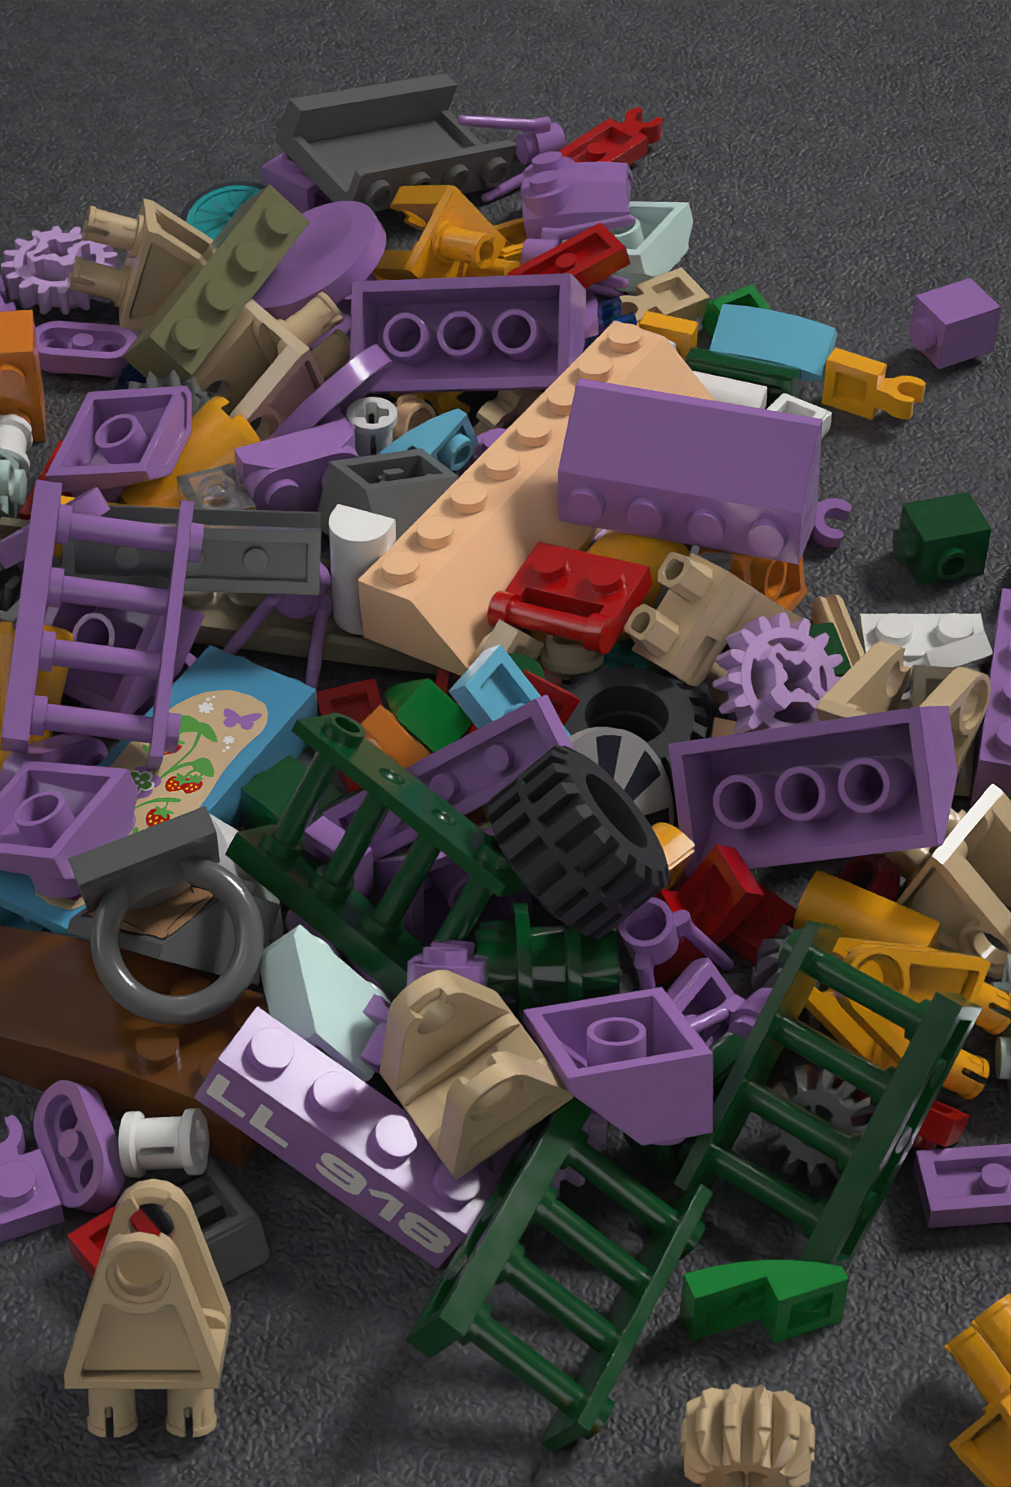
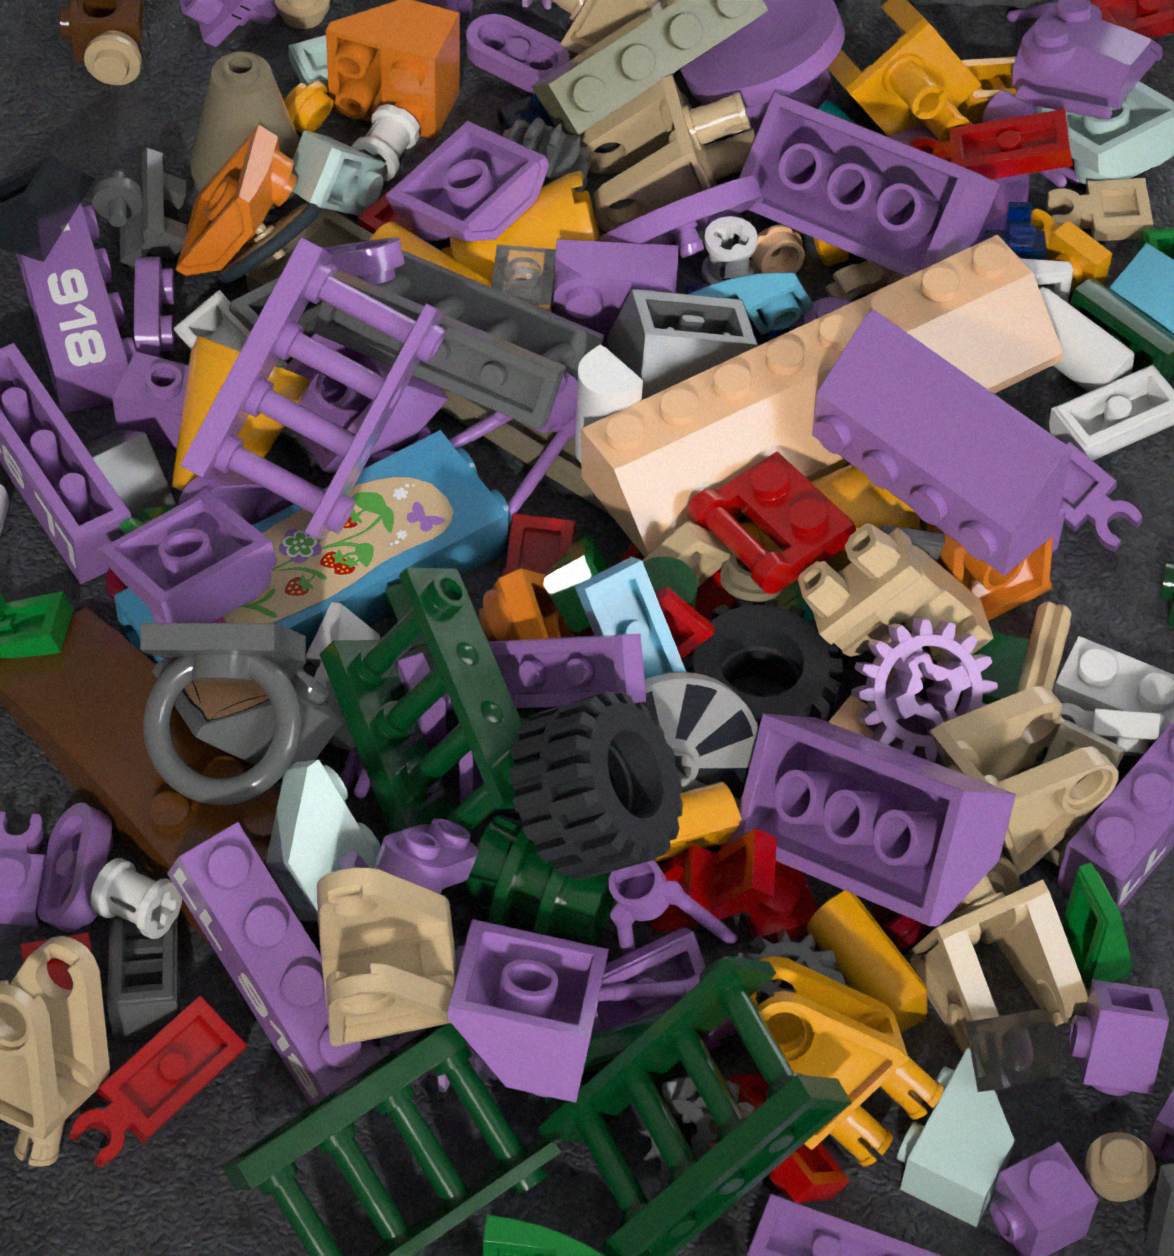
camera: 25 degrees right, 10 degrees up
(282, 1300) = (161, 1078): none -> red plate

